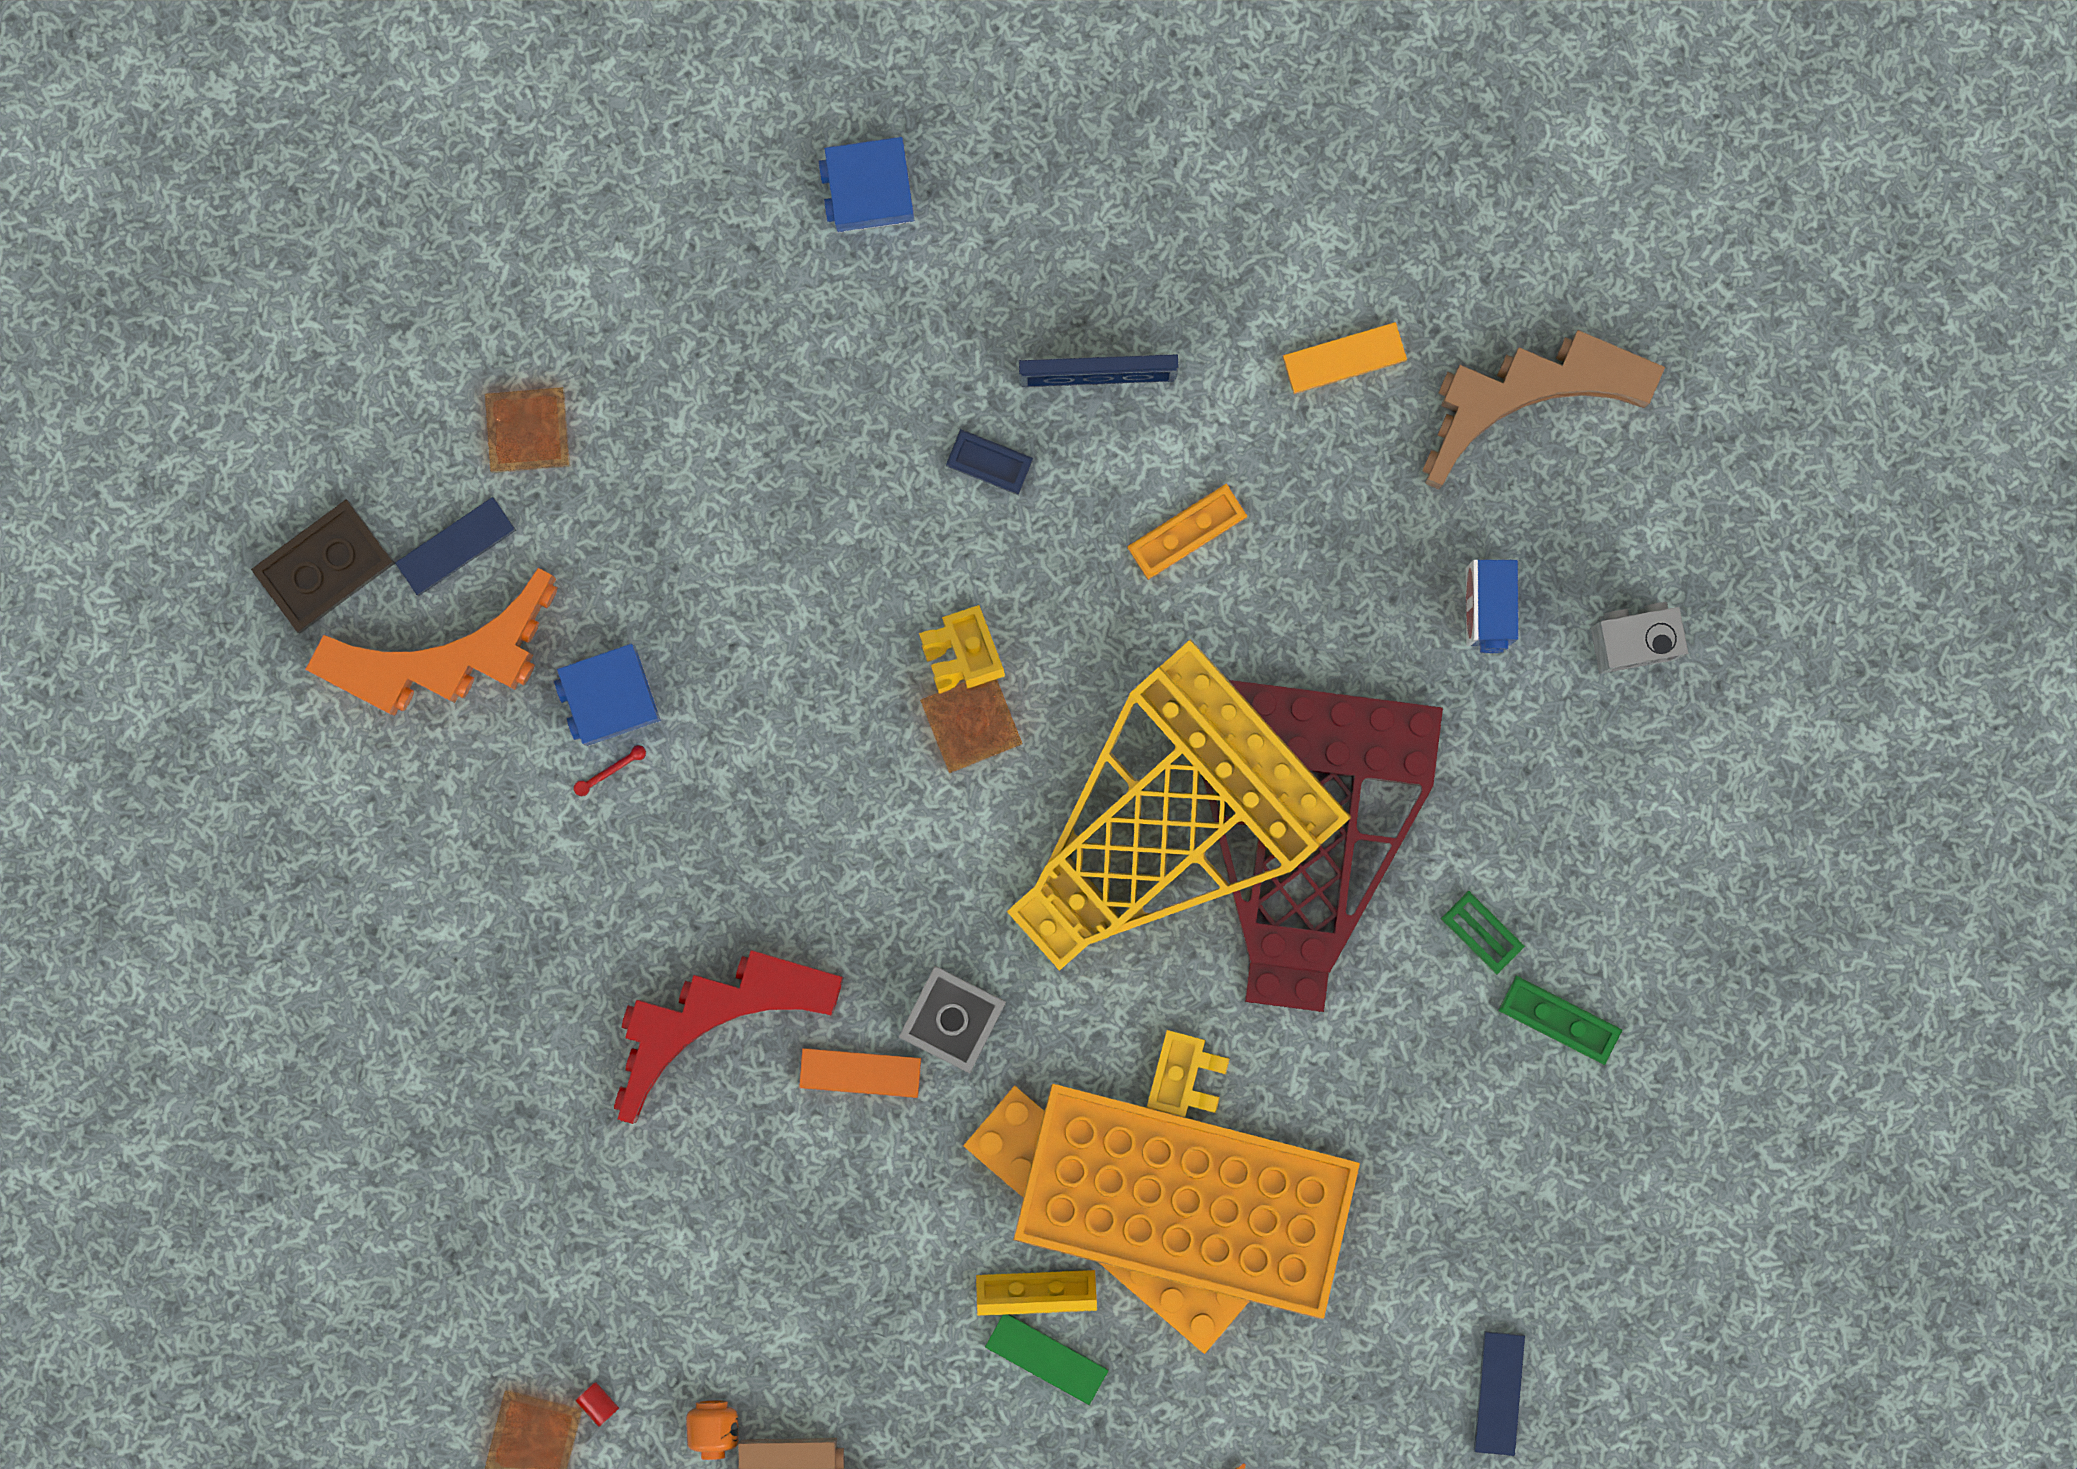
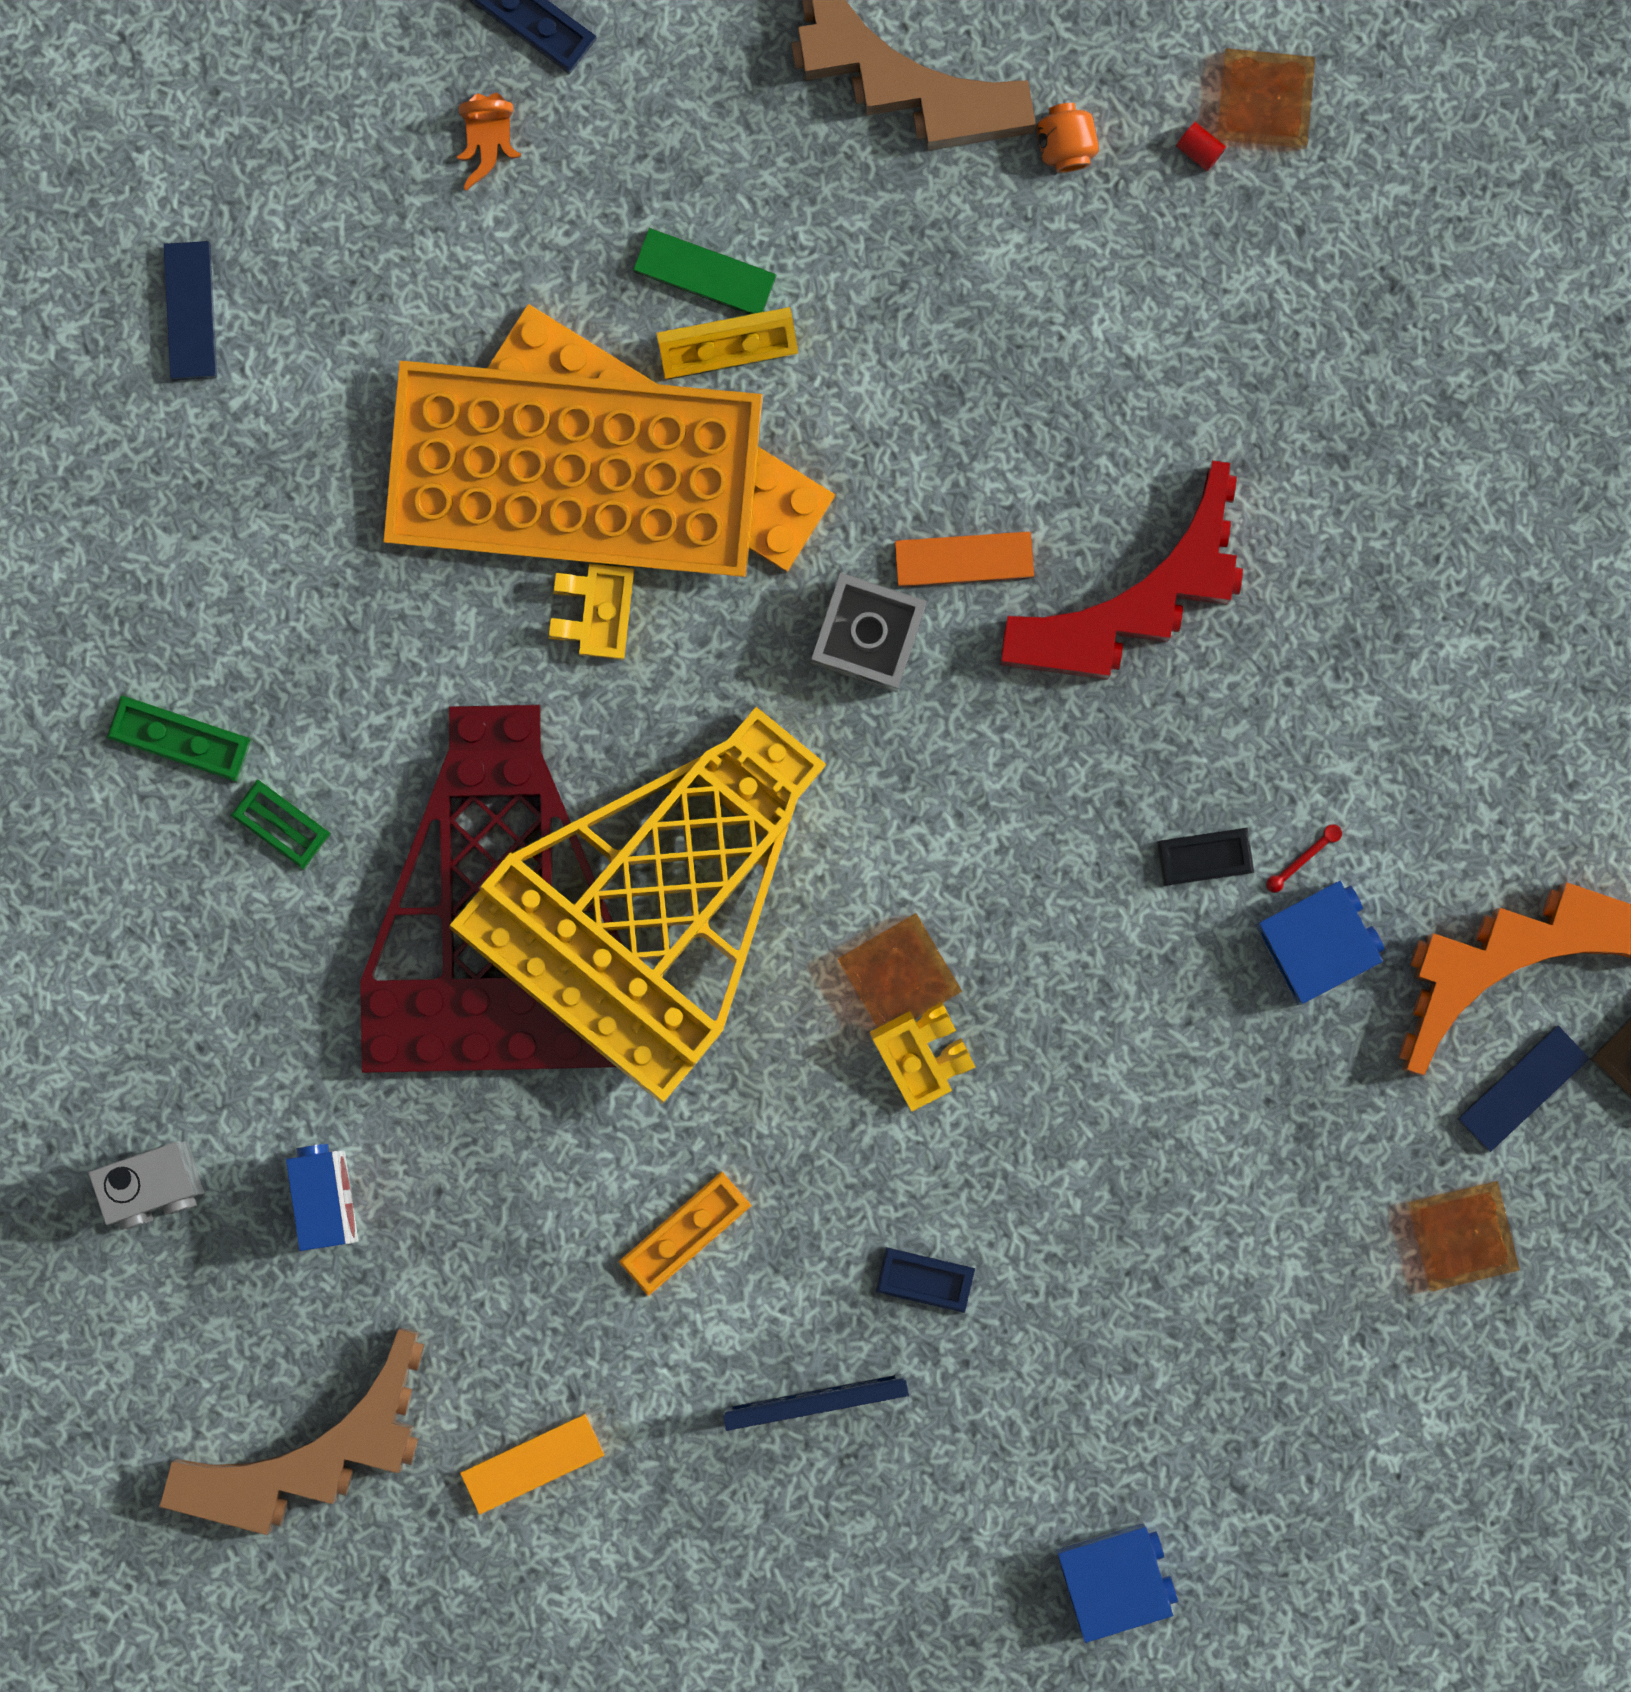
camera: 165 degrees right, 0 degrees up
(694, 784) = (1205, 857): none -> black tile

